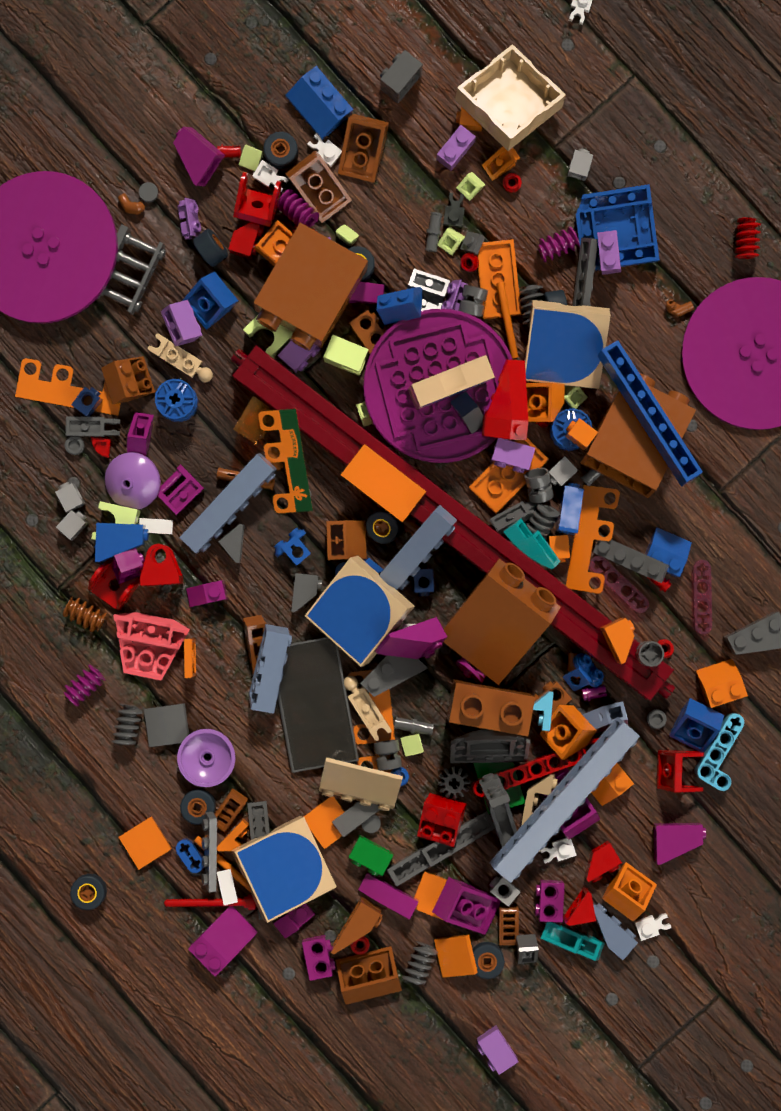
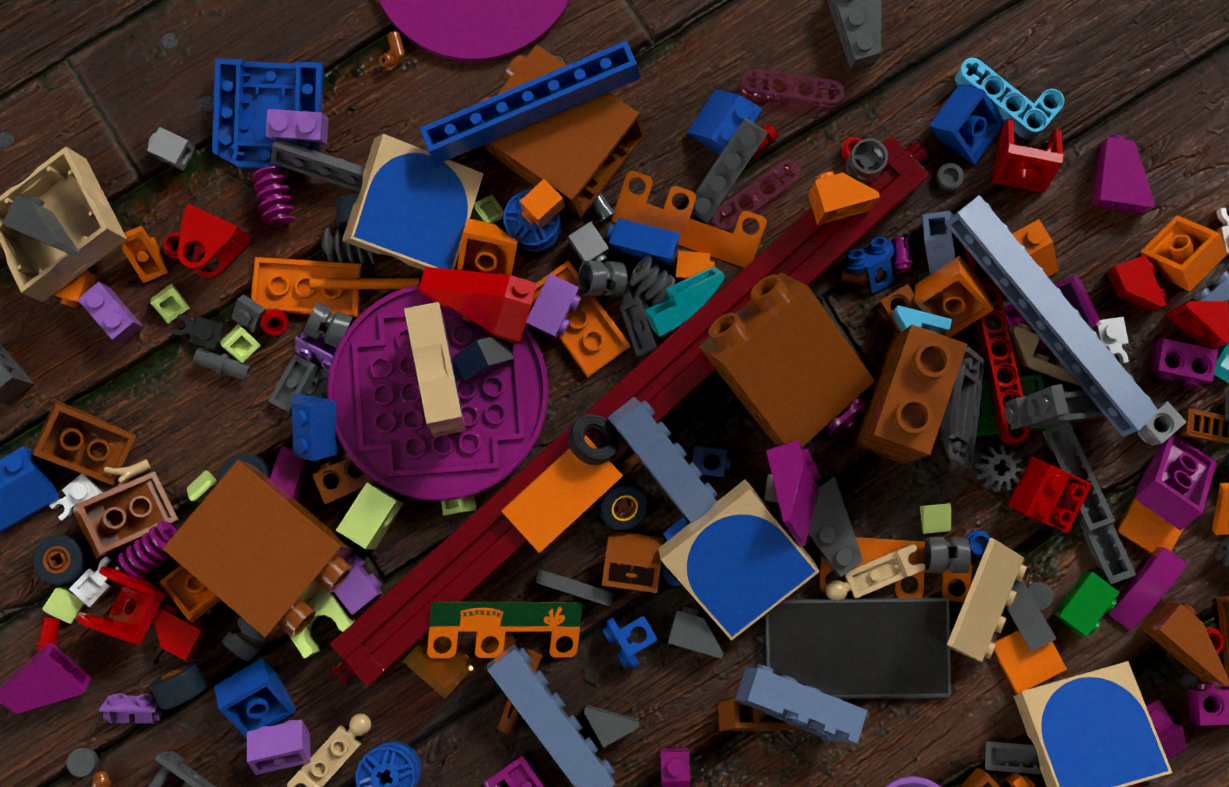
camera: 75 degrees left, 5 degrees down
(249, 286) = (244, 640): none -> dark grey wheel
(322, 503) = (575, 587): none -> dark grey beam
(348, 183) = (129, 472): none -> tan bar
(413, 492) = (582, 450): none -> black tyre
(414, 726) = (910, 511): dark grey pin -> none
(507, 89) = (38, 223): none -> dark grey slope
(523, 204) = (211, 238): none -> red hose
(721, 683) = (915, 81): orange slope -> none

